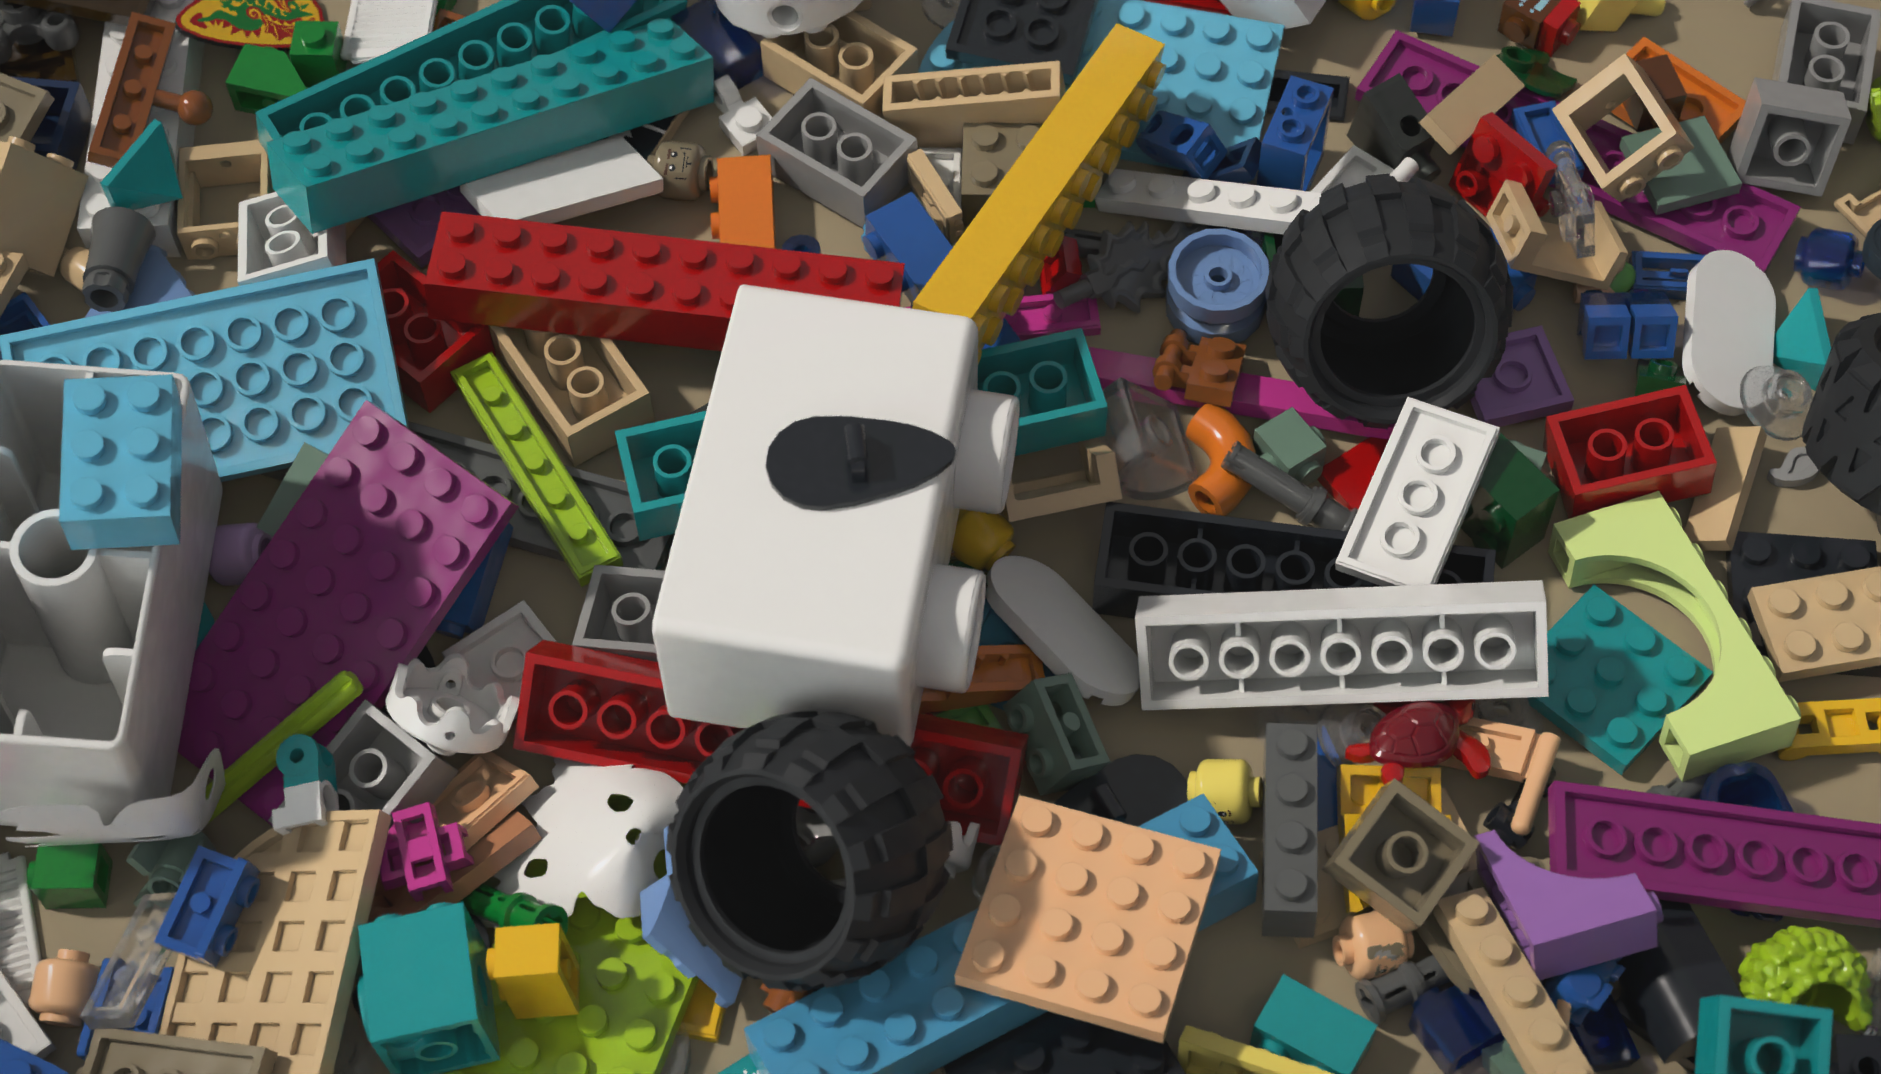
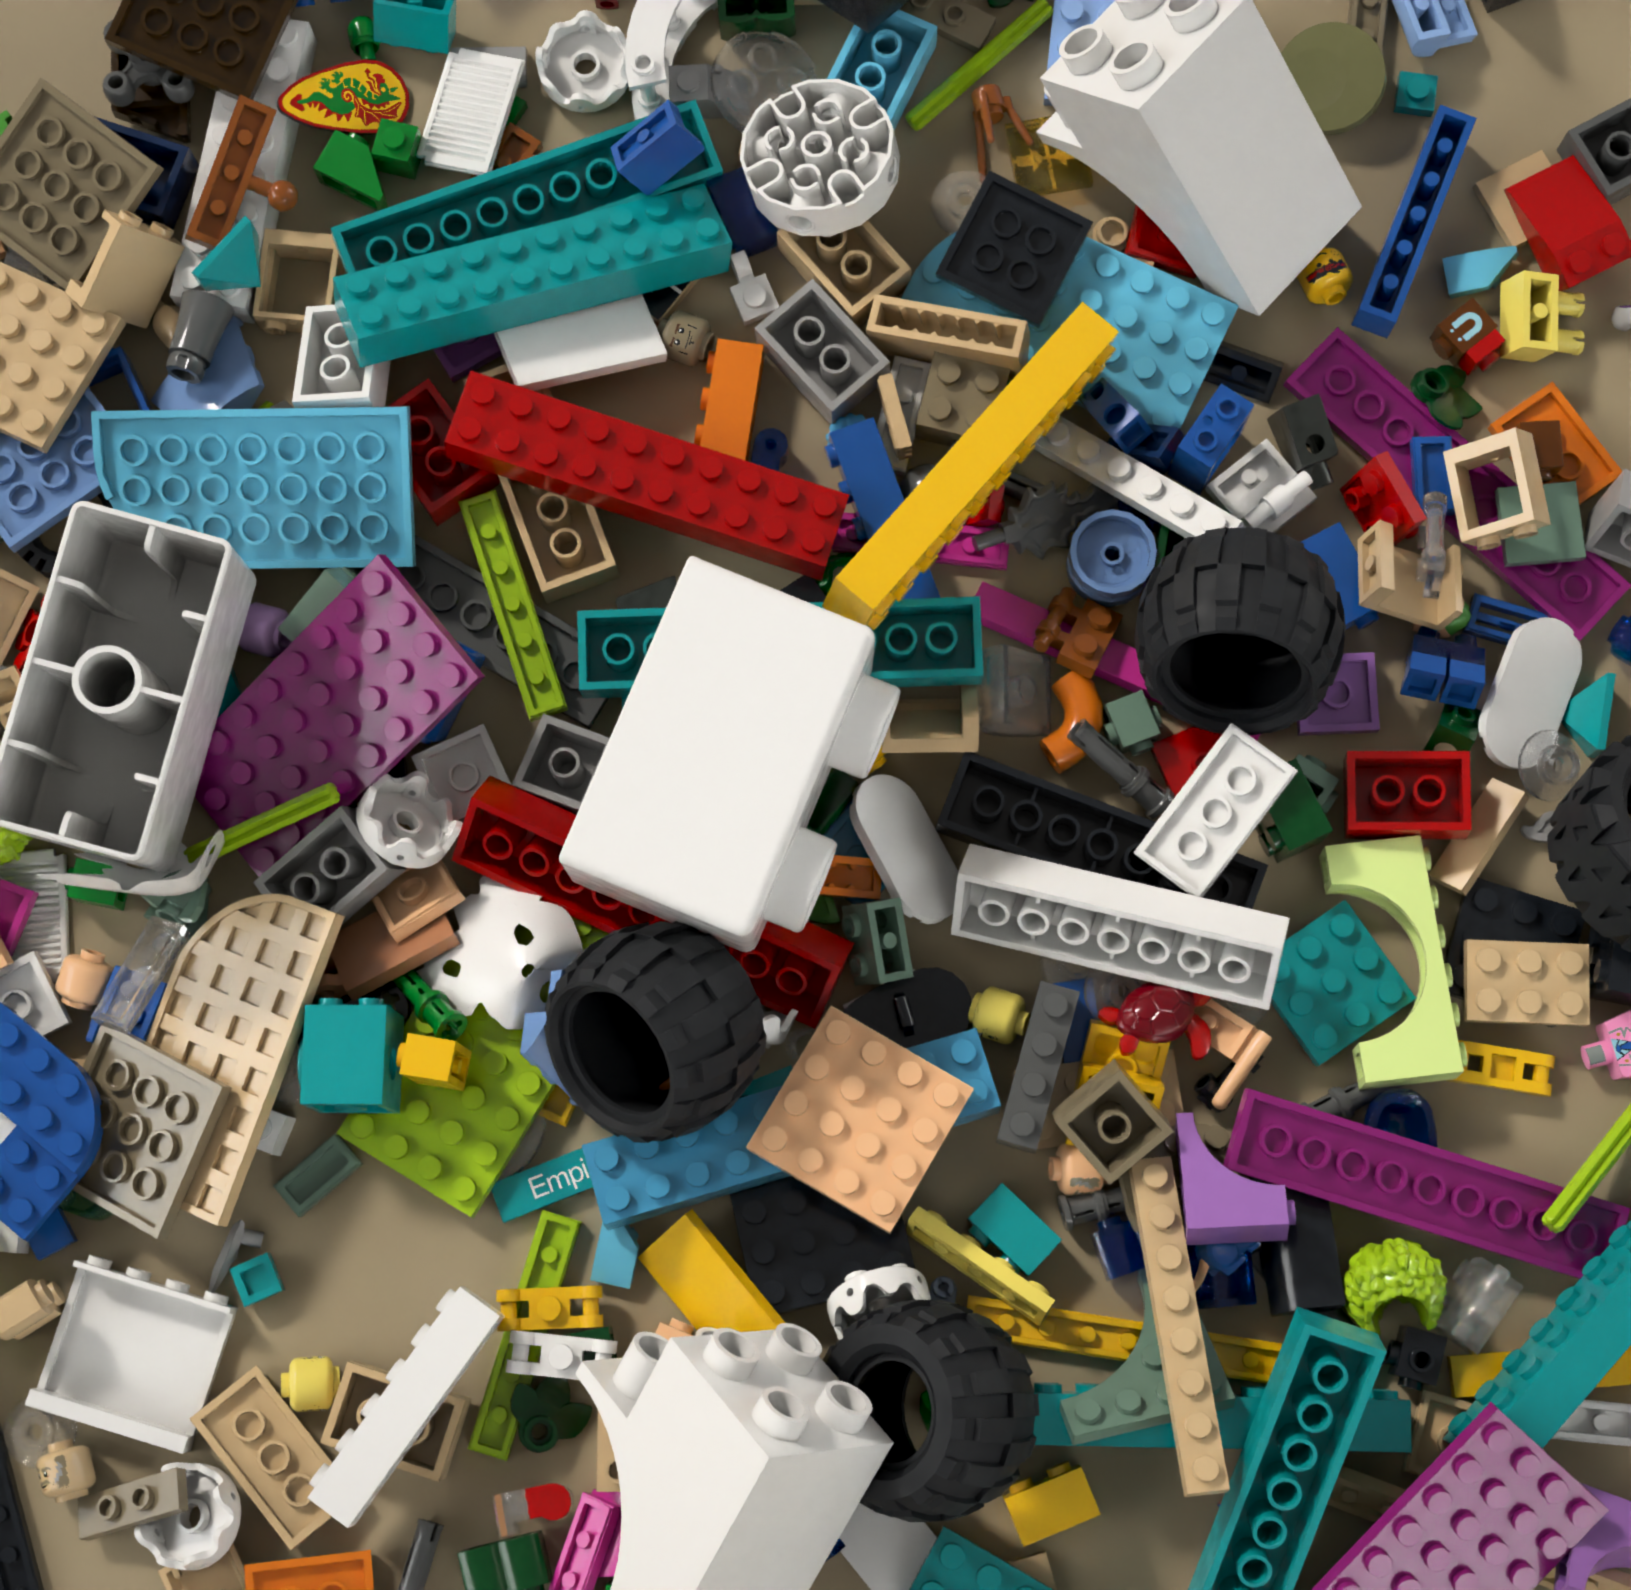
camera: 15 degrees right, 20 degrees up
(121, 462) = (167, 622): medium azure brick -> none
(208, 906) = (197, 951): blue bracket -> none
(308, 783) = (286, 870): leg -> none
(421, 842) = (363, 936): dark pink piece -> none
(852, 460) = (745, 745): black shield -> none
(1478, 95) = (1376, 430): tan tile -> none

